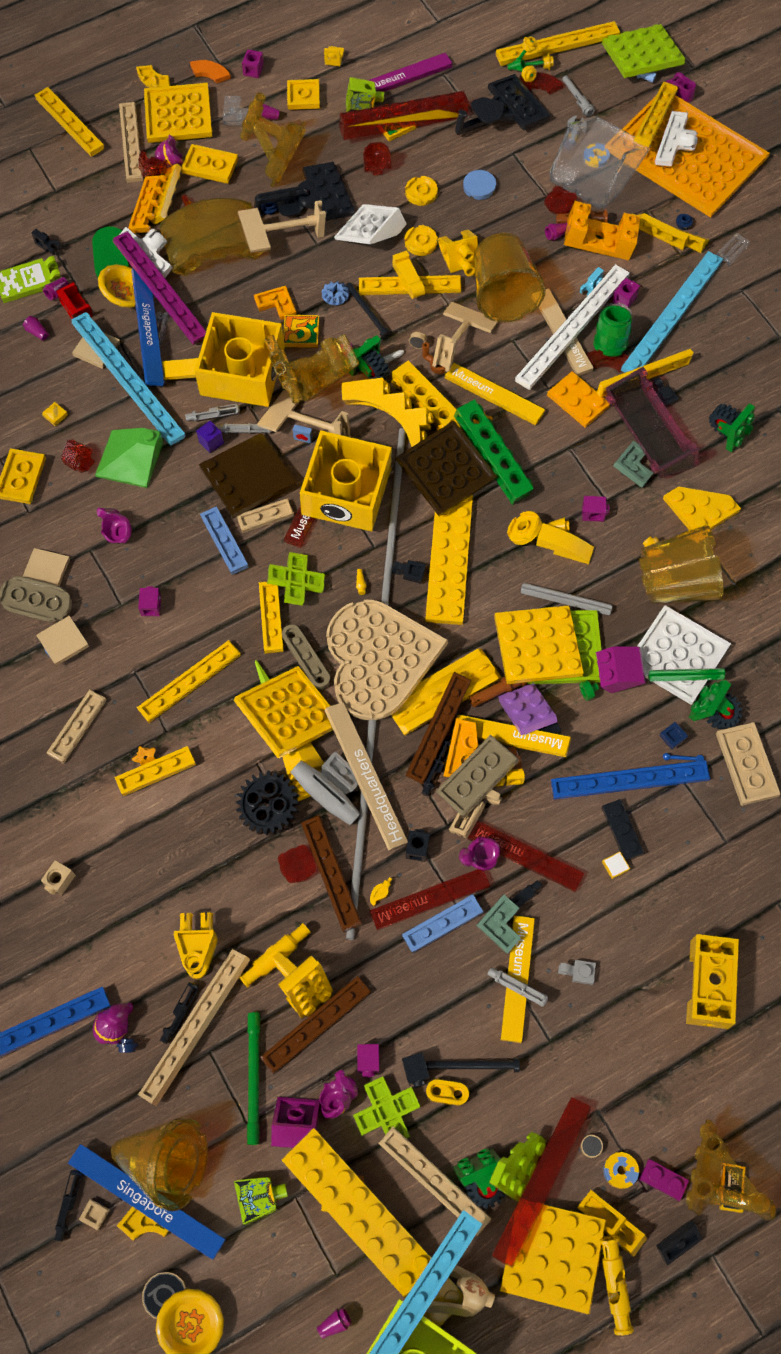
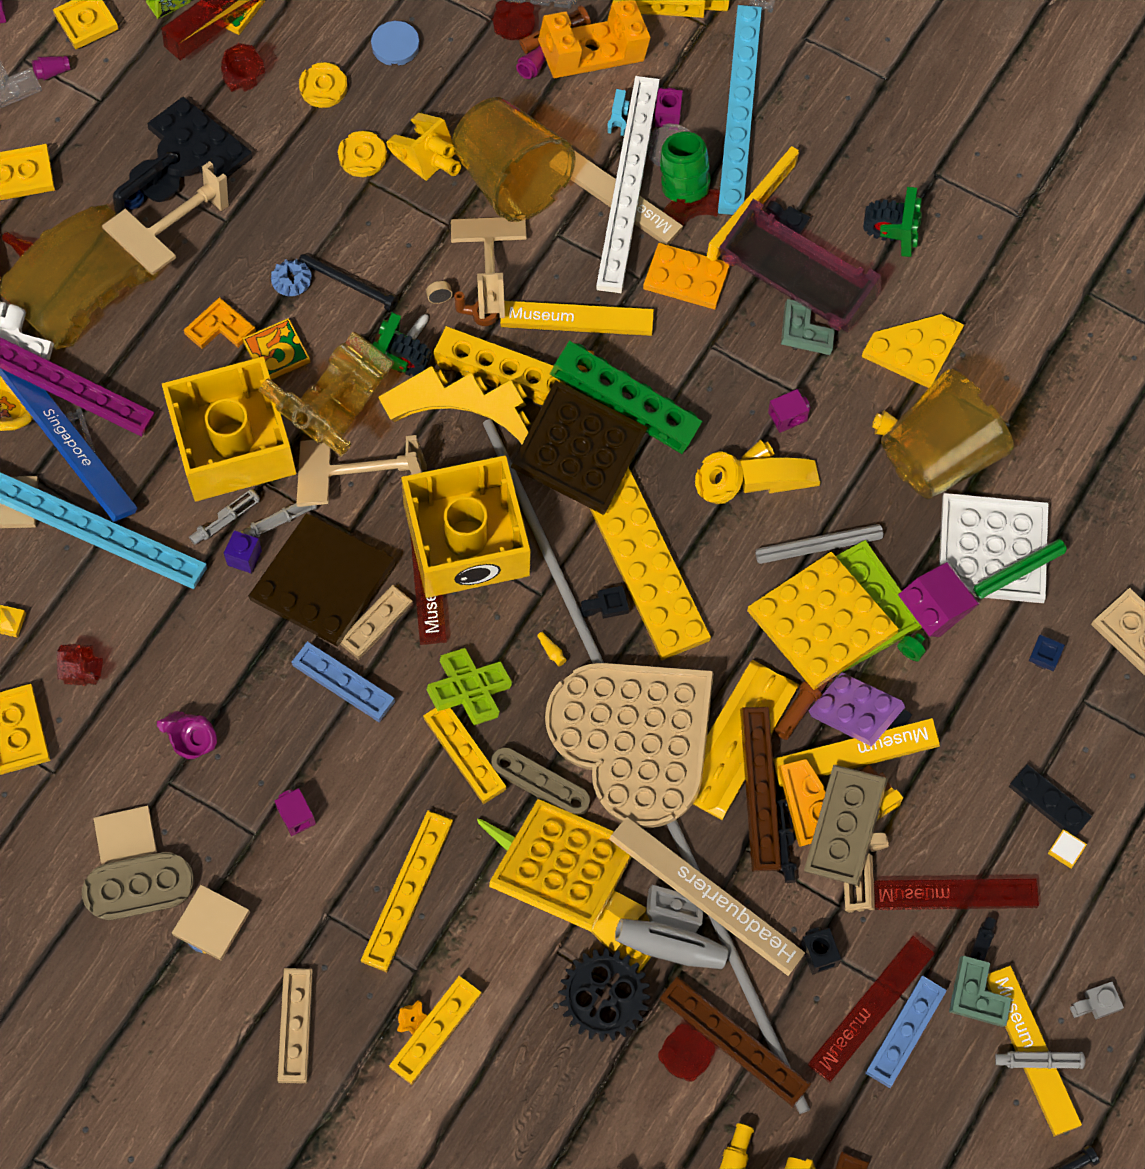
camera: 30 degrees left, 0 degrees up
(130, 456) = (147, 629): bright green slope -> none
(179, 369) = (153, 477): yellow tile -> none
(288, 138) = (107, 99): clear yellow plate -> none
(302, 433) = (362, 489): medium blue tile -> none
(372, 224) = (287, 163): white slope -> none
(380, 891) = (807, 1032): yellow piece -> none
(393, 285) = (382, 221): yellow tile -> none
(408, 274) = (378, 210): yellow leg -> none
(480, 854) = (903, 920): magenta hair -> none
(630, 779) = (1022, 734): blue tile -> none
(666, 756) = (1088, 666): blue hinge -> none
(717, 706) = (1075, 590): green plate -> none

